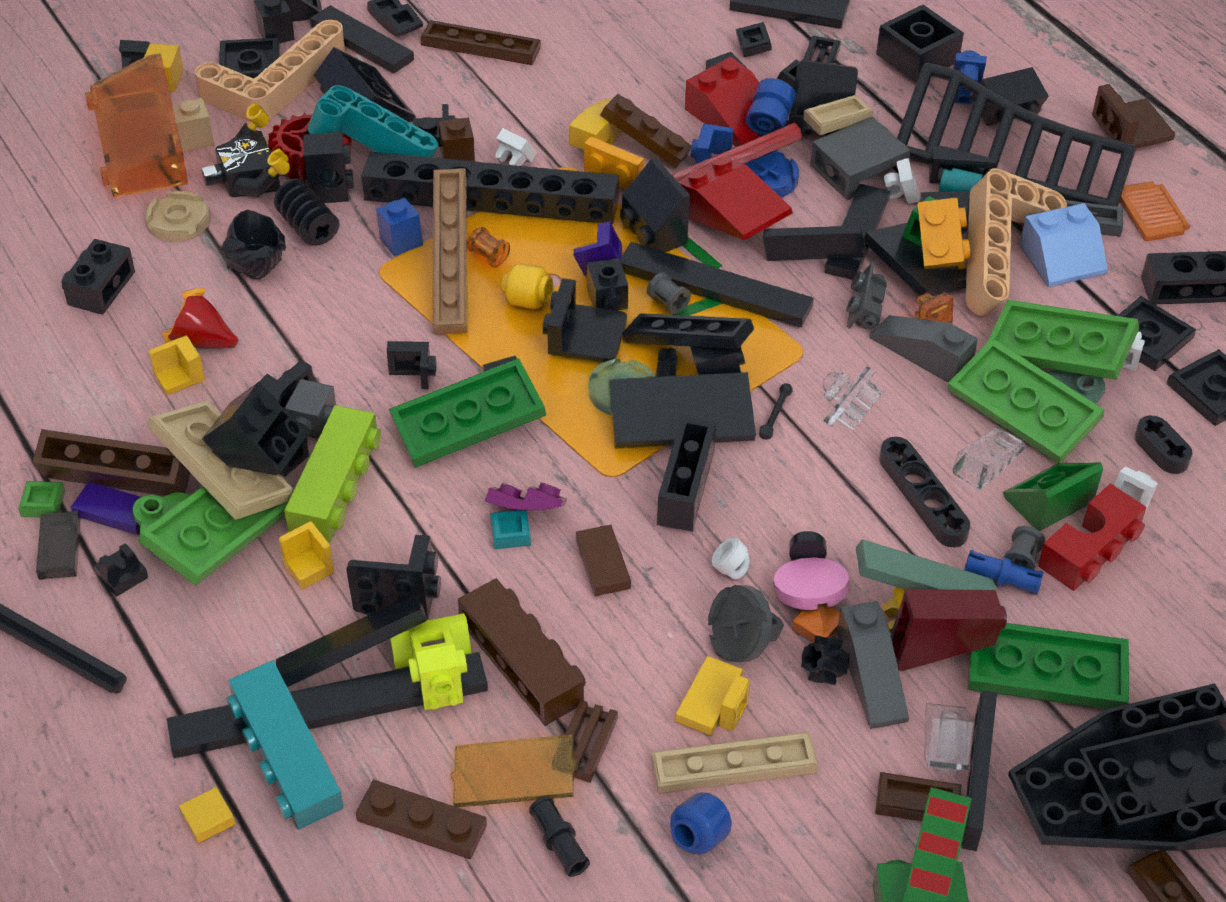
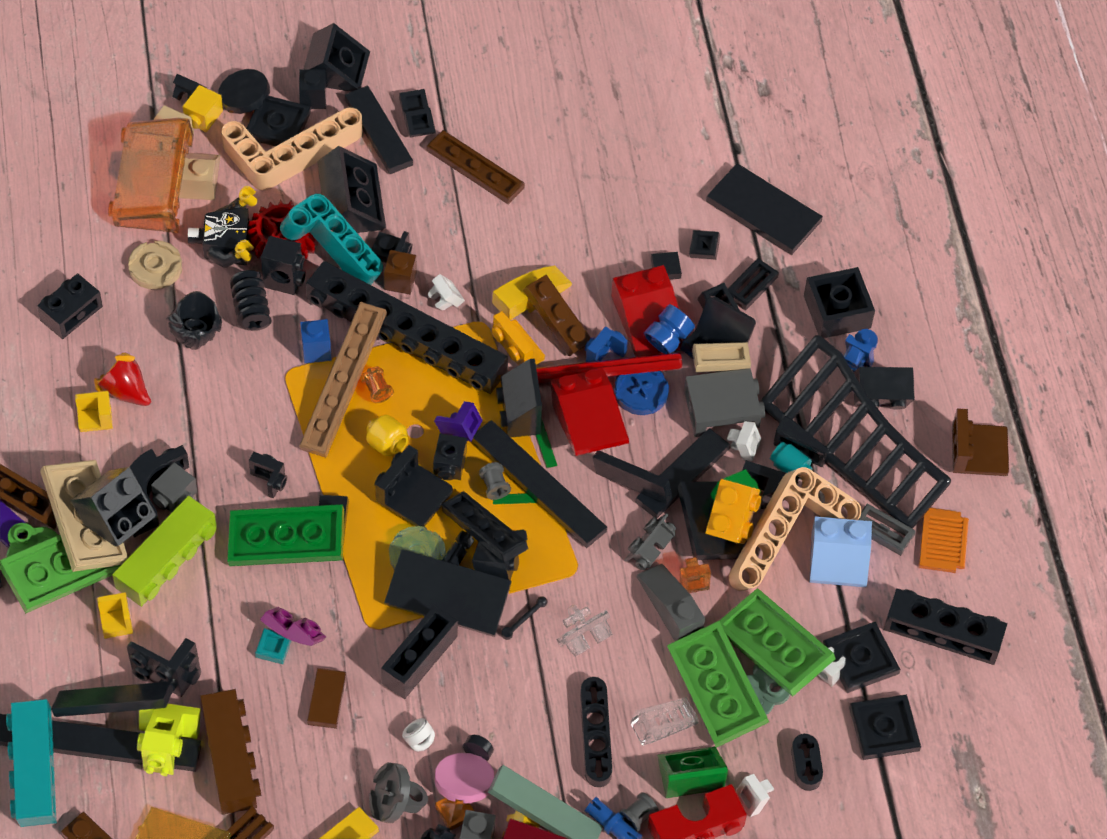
camera: 20 degrees right, 10 degrees up
(201, 41) = (244, 90): none -> black tile

